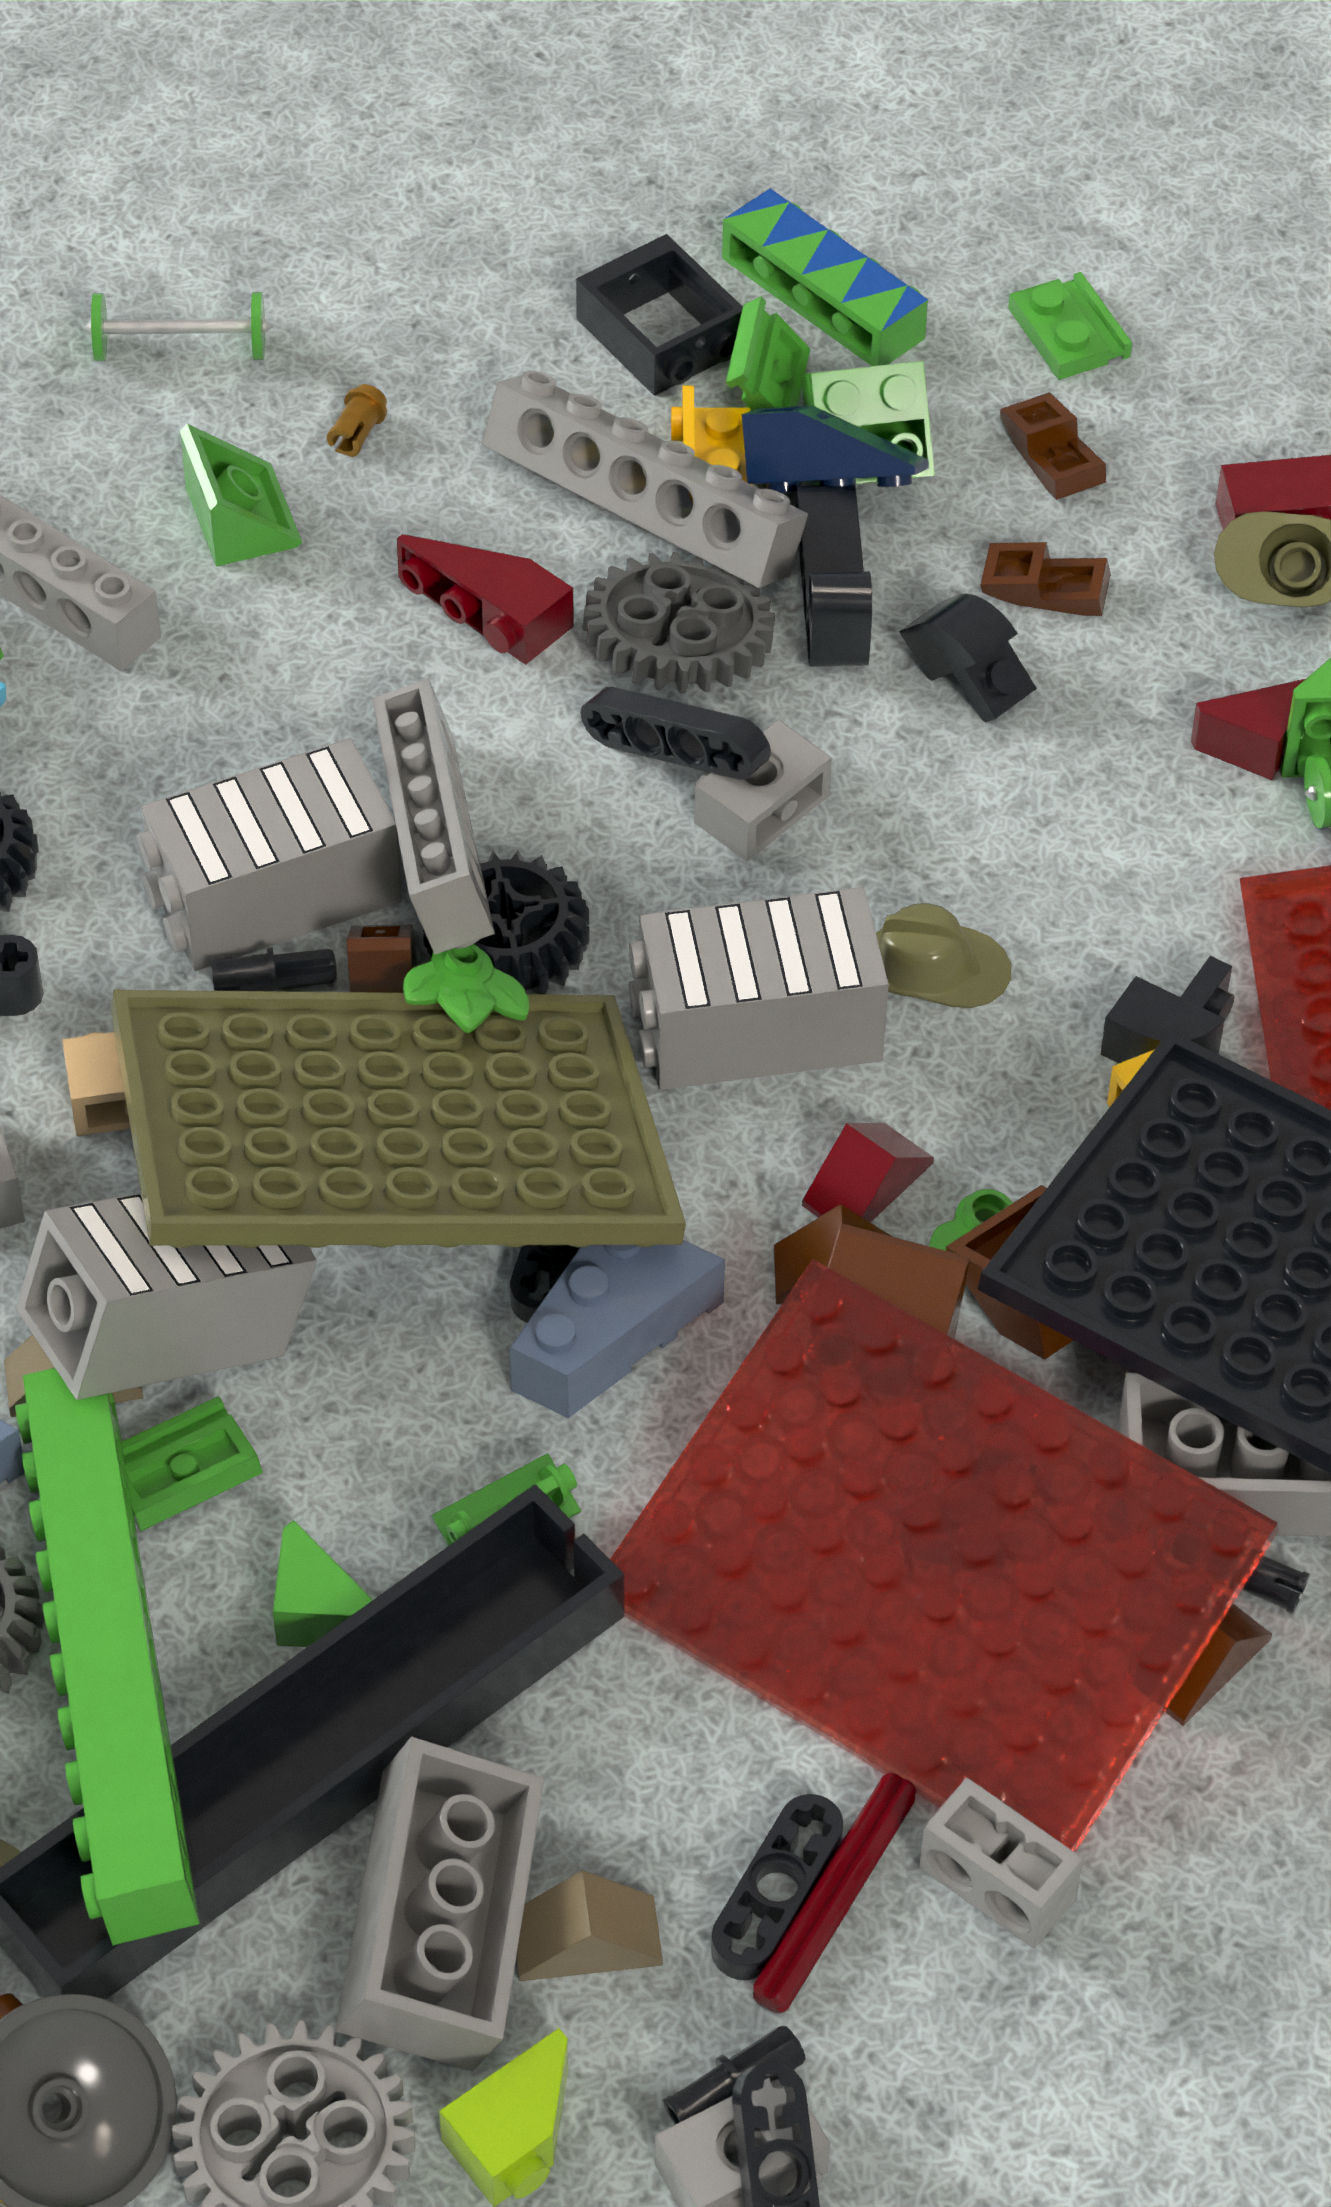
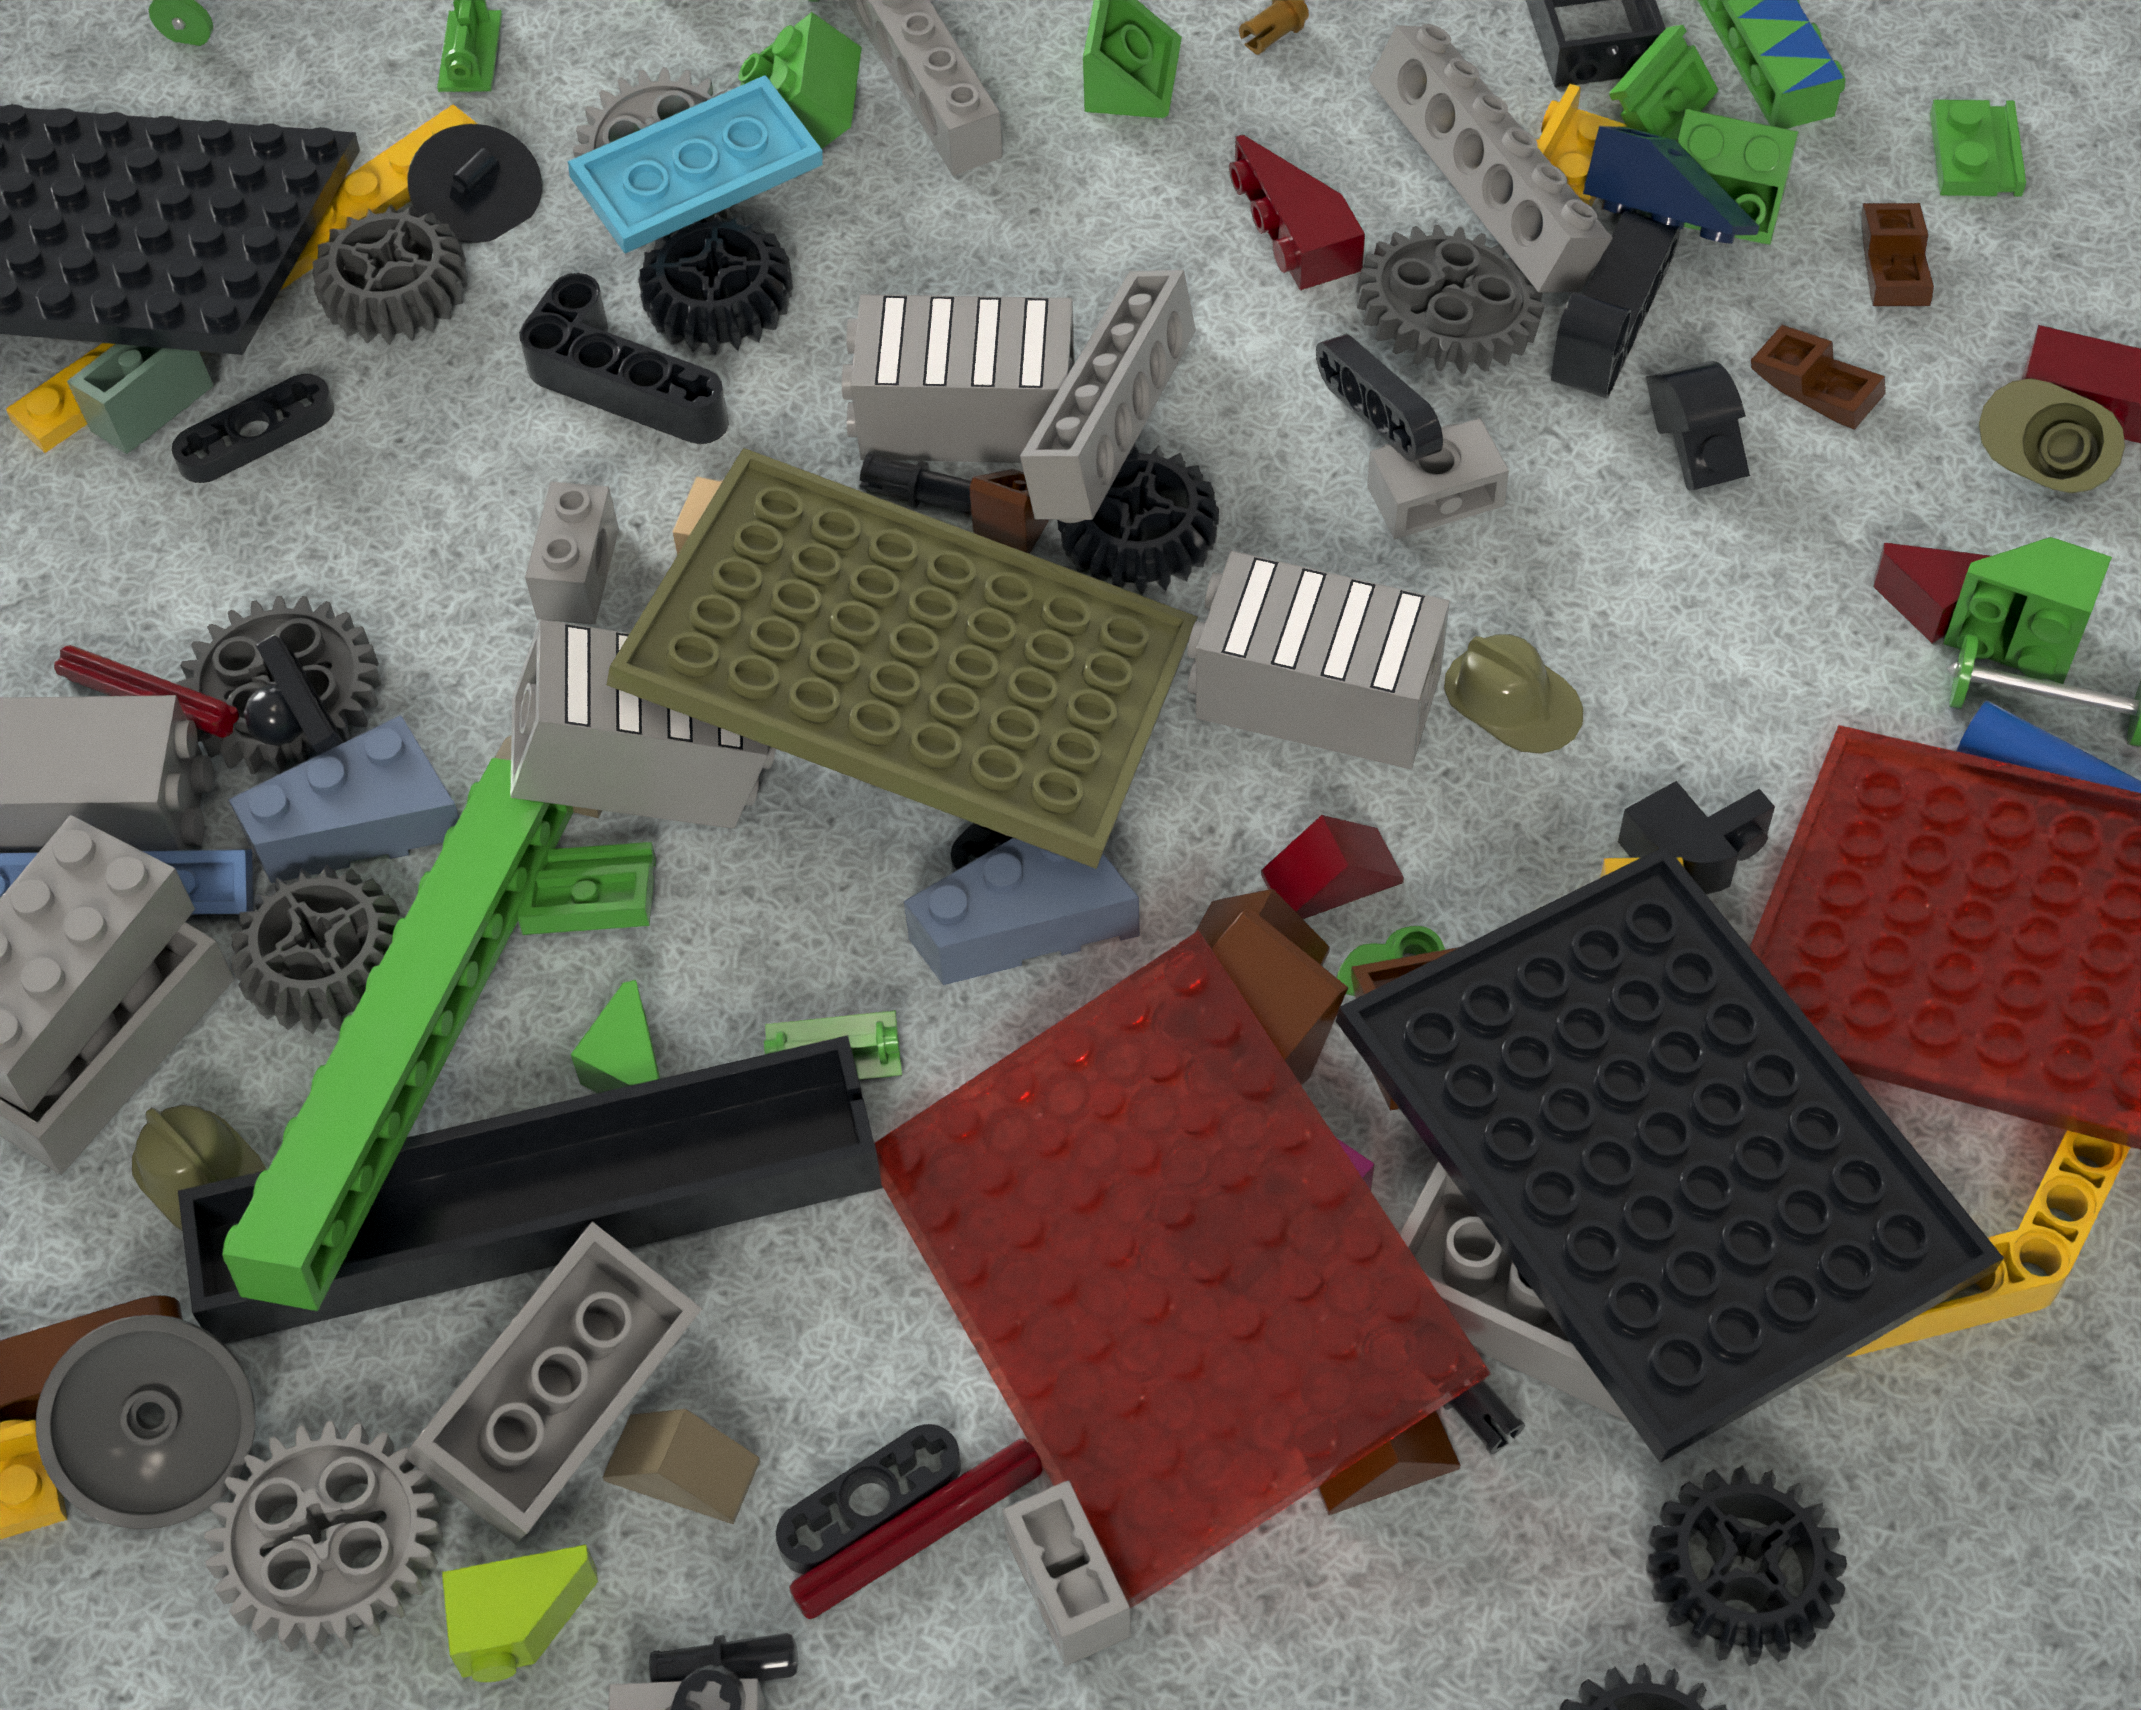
camera: 30 degrees right, 5 degrees up
(466, 987) = (1054, 558): bright green plate -> none

